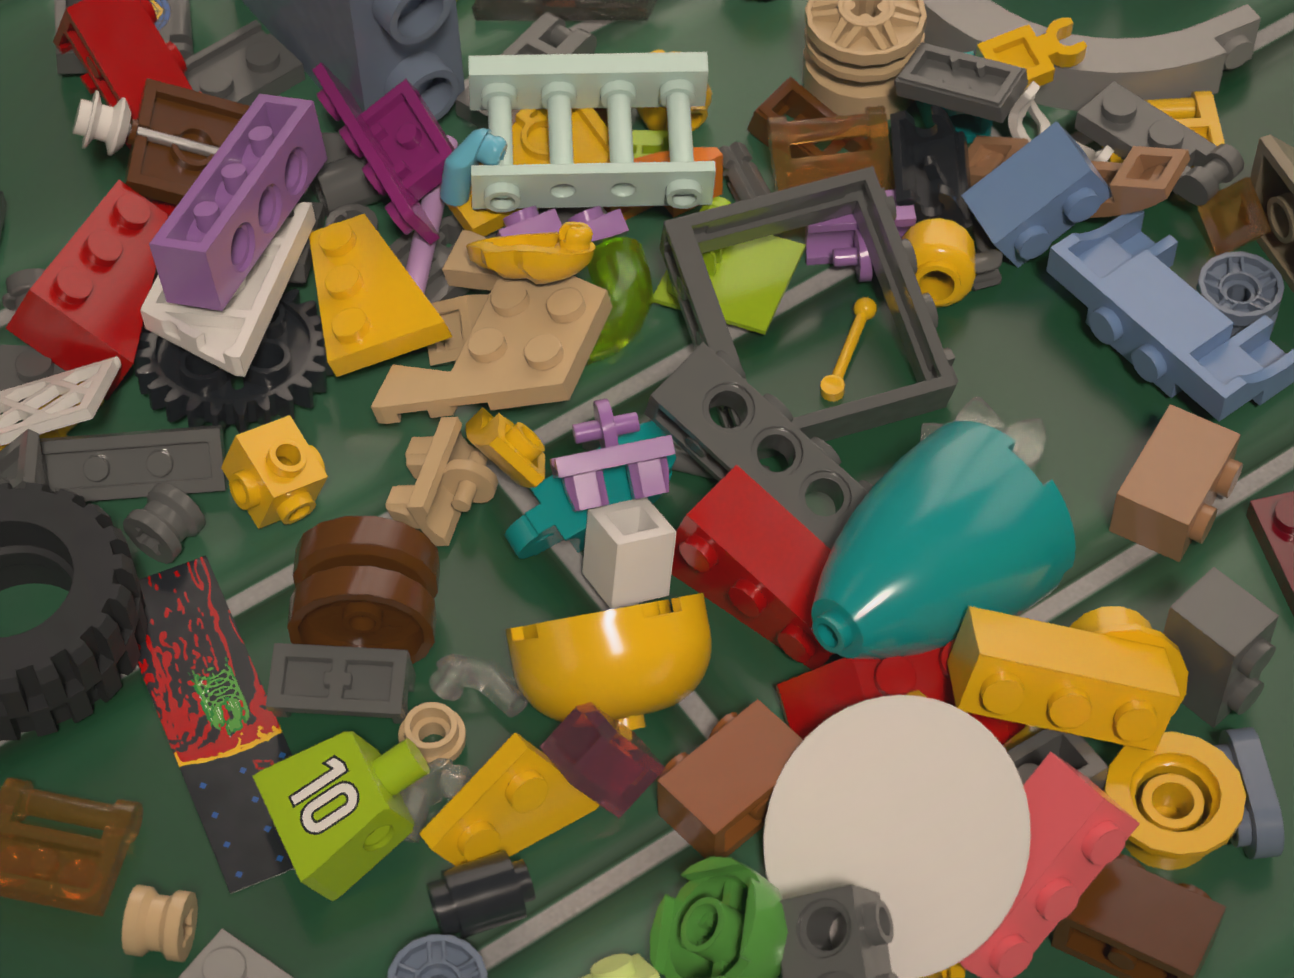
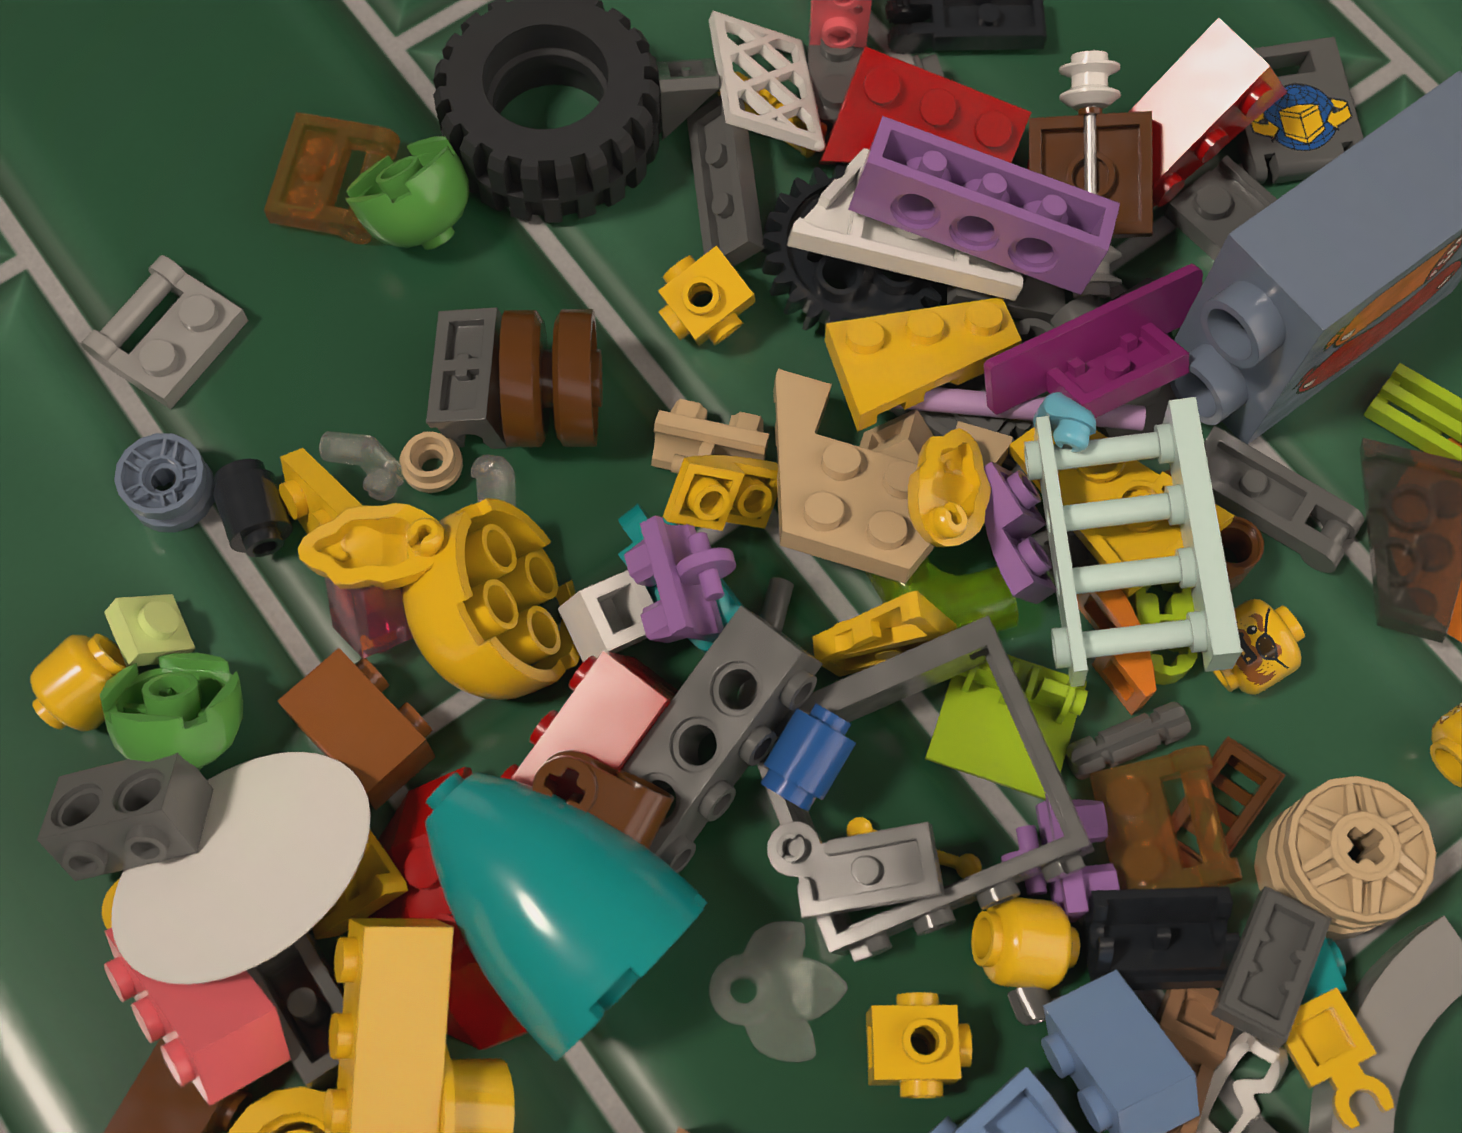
camera: 85 degrees right, 15 degrees up
(103, 739) = (414, 197): none -> bright green cylinder
(159, 923) = (246, 260): tan wheel -> none
(164, 523) = (658, 217): dark grey wheel -> none
(213, 717) = (507, 271): black sticker -> none
(341, 807) = (336, 381): lime torso -> none
(561, 712) = (374, 546): none -> yellow arm
(658, 310) = (880, 634): none -> yellow wing
(786, 371) = (808, 756): none -> blue brick
(822, 521) = (610, 794): none -> reddish brown piece
(889, 345) = (857, 869): none -> hinge
(1031, 337) = (893, 1057): none -> yellow brick

